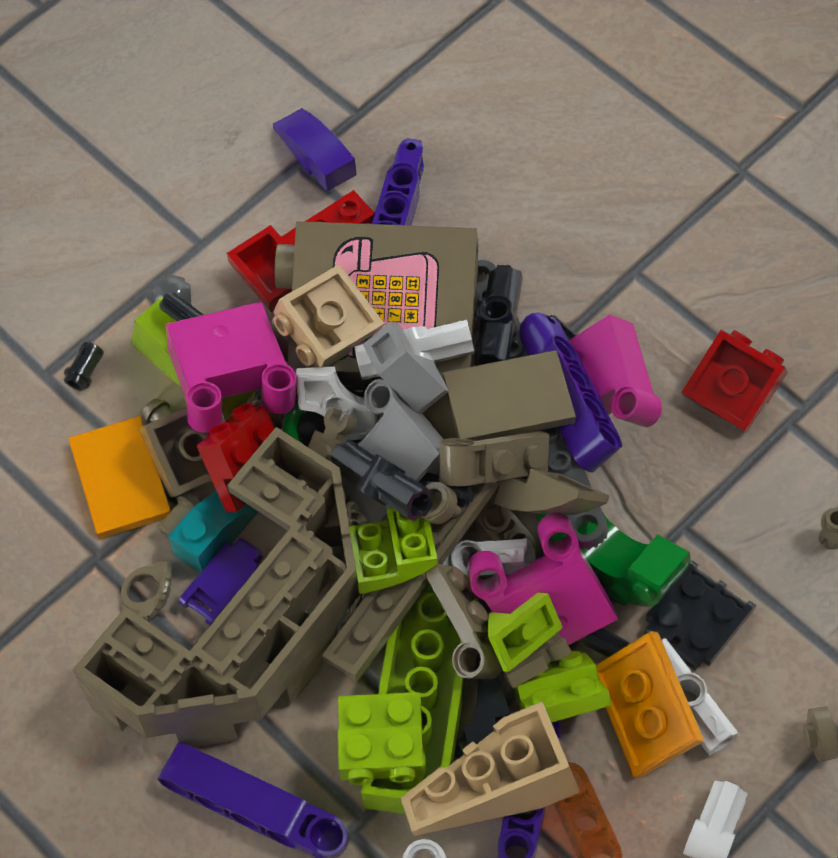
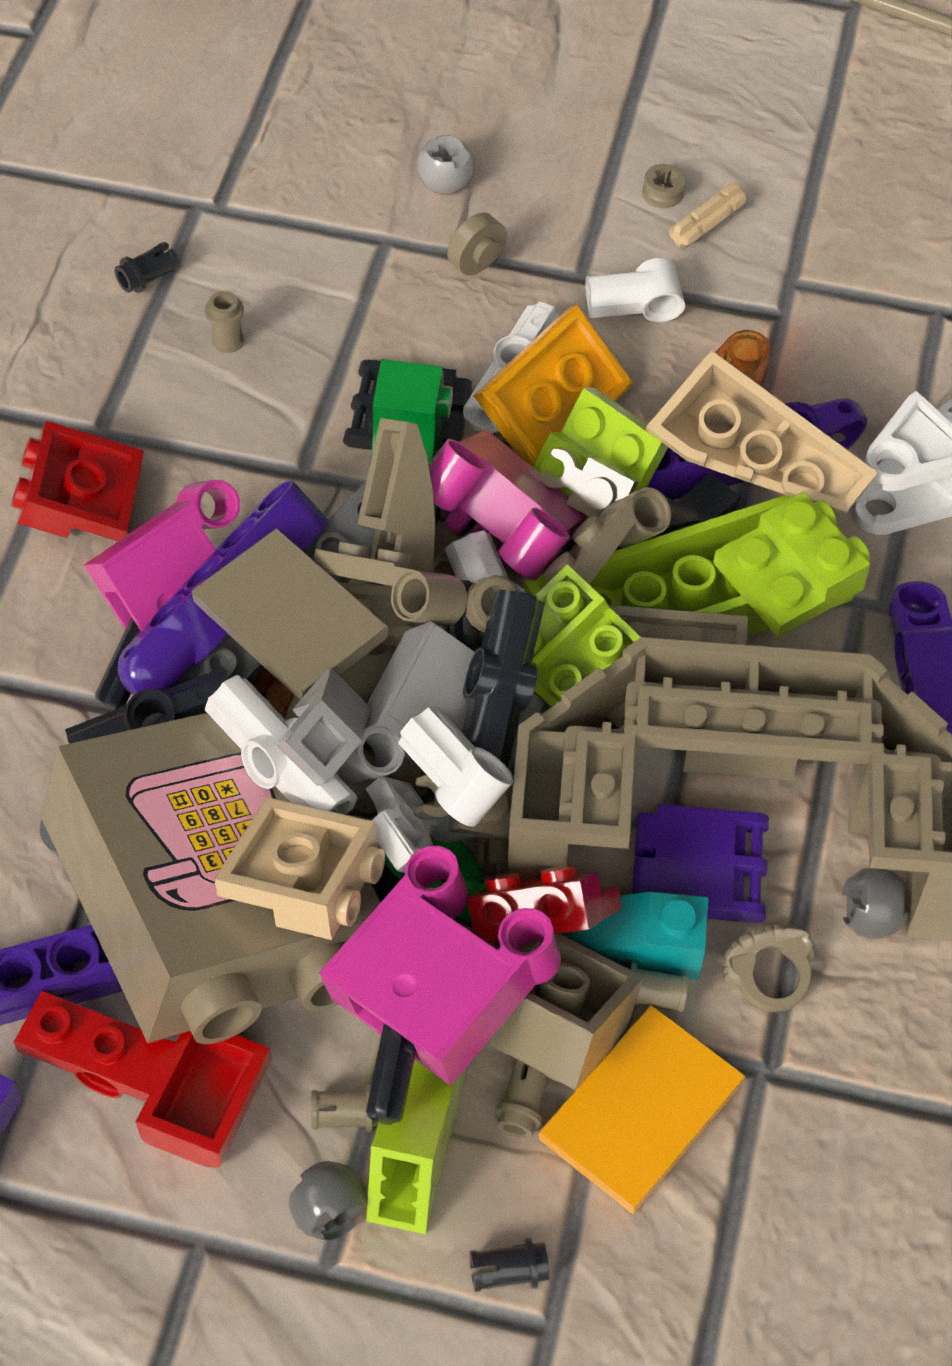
camera: 125 degrees left, 5 degrees down
(343, 423) = (465, 775): none -> white piece
(522, 631) = (593, 482): lime slope -> none

